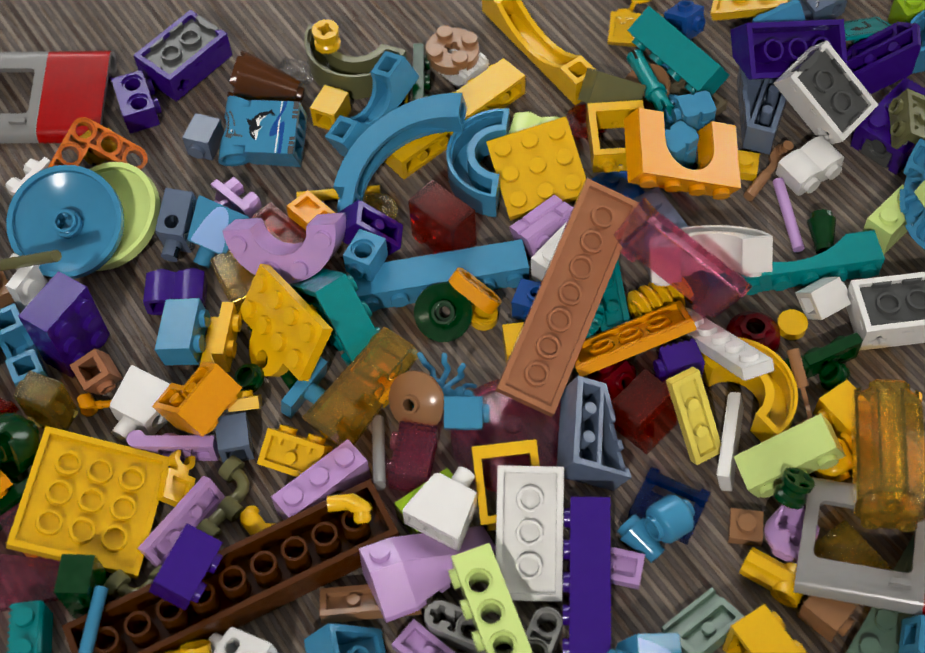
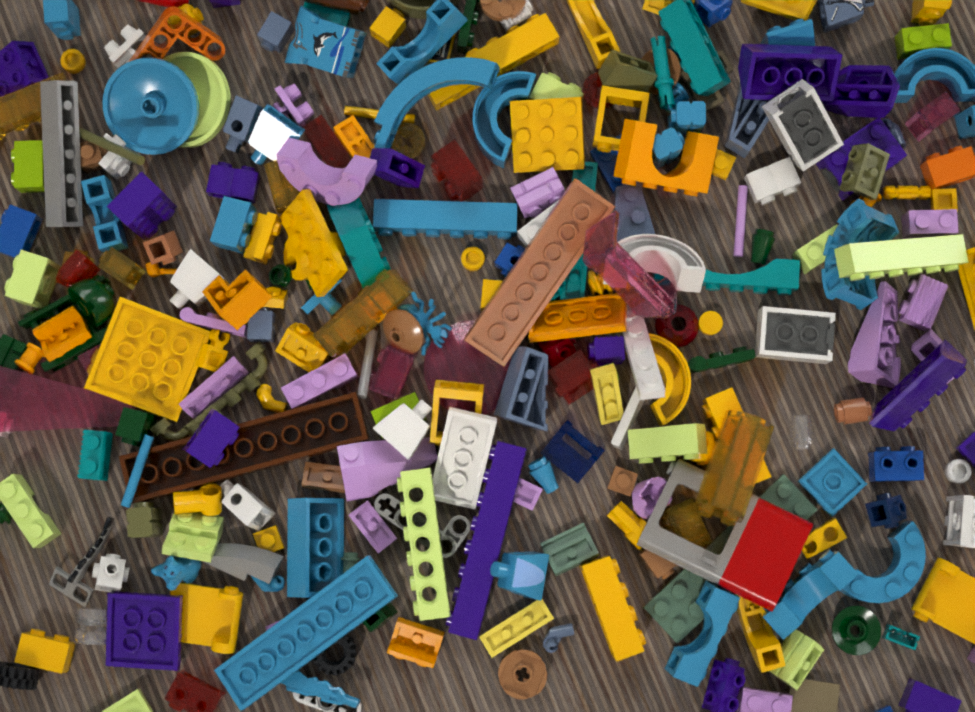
camera: 10 degrees right, 25 degrees up
(352, 503) = (339, 412): yellow arm -> none
(369, 246) = (391, 186): dark azure brick -> none
(430, 320) = (436, 261): dark green dish -> none
(465, 413) = (436, 353): dark azure brick -> none
(475, 290) = (468, 244): light orange beam -> none
(669, 519) = (566, 470): dark azure head -> none
(775, 156) = (750, 164): medium nougat piece -> none
(793, 488) = (666, 471): dark green wheel -> none
(800, 377) = (694, 412): medium nougat piece -> none
(823, 298) = (740, 309): white brick -> none
(833, 374) = (726, 377): dark green plate -> none
(863, 28) = (865, 48): teal piece -> none

